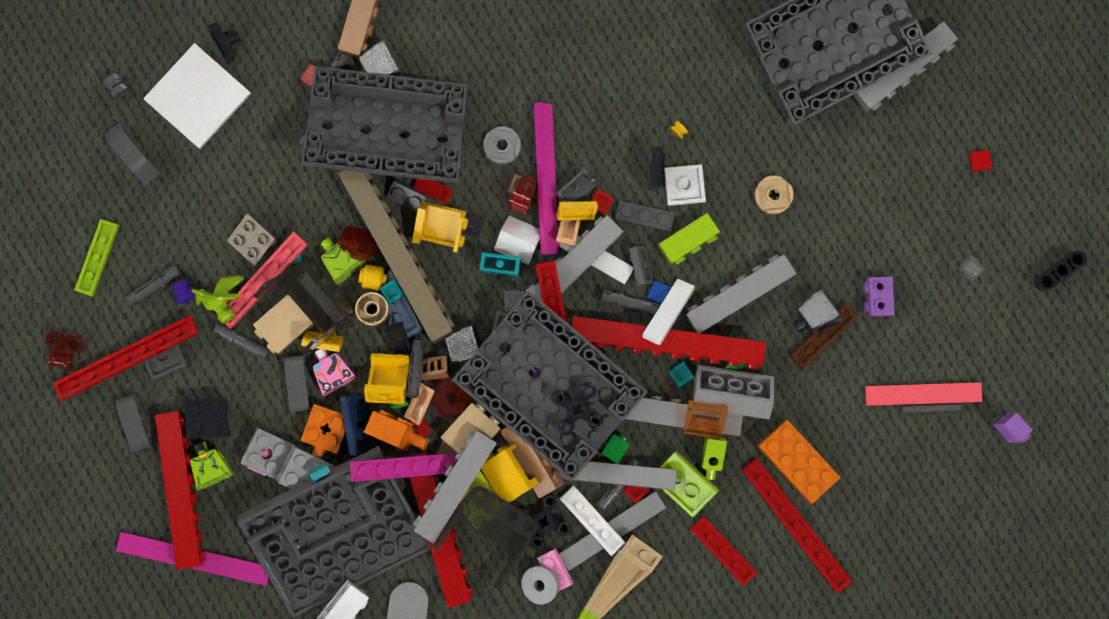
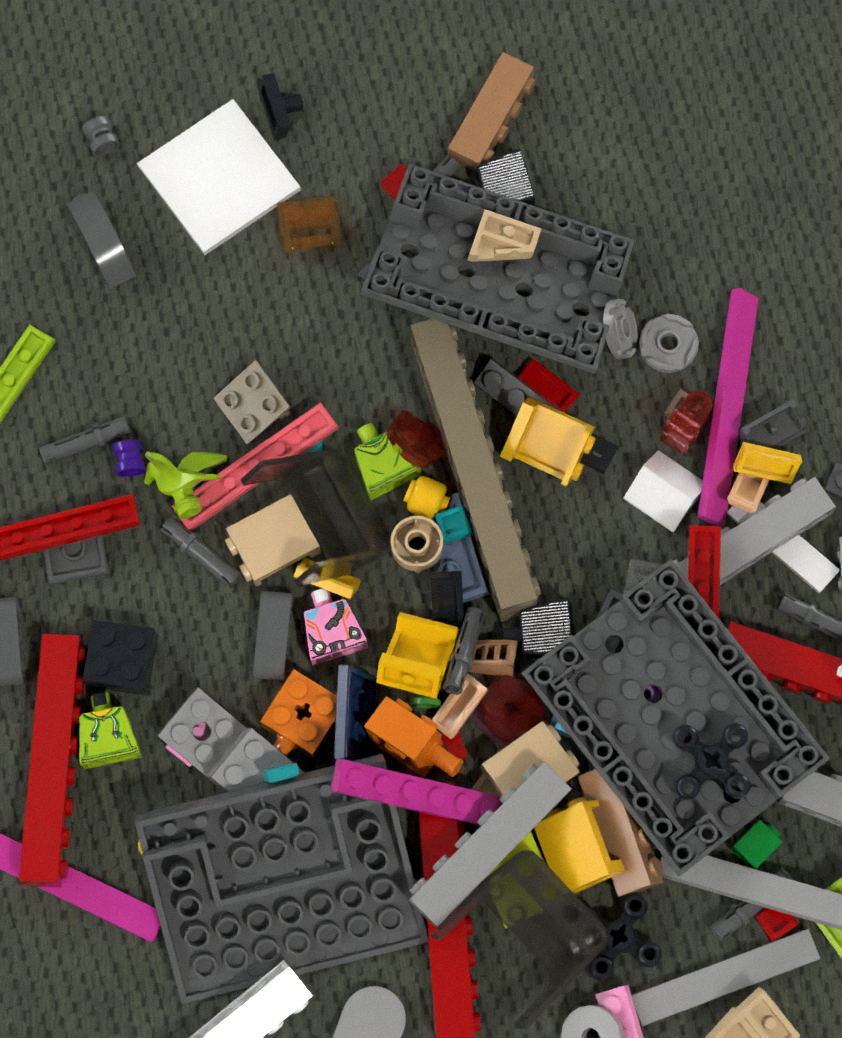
camera: 15 degrees right, 10 degrees down
(260, 110) = (308, 216): none -> clear orange plate
(384, 104) = (503, 239): none -> tan wing
(470, 144) = (621, 330): none -> light grey tile
(500, 264) = (630, 519): teal brick -> none
(592, 520) = (697, 953): white tile -> none
(603, 201) = (811, 459): red tile -> none

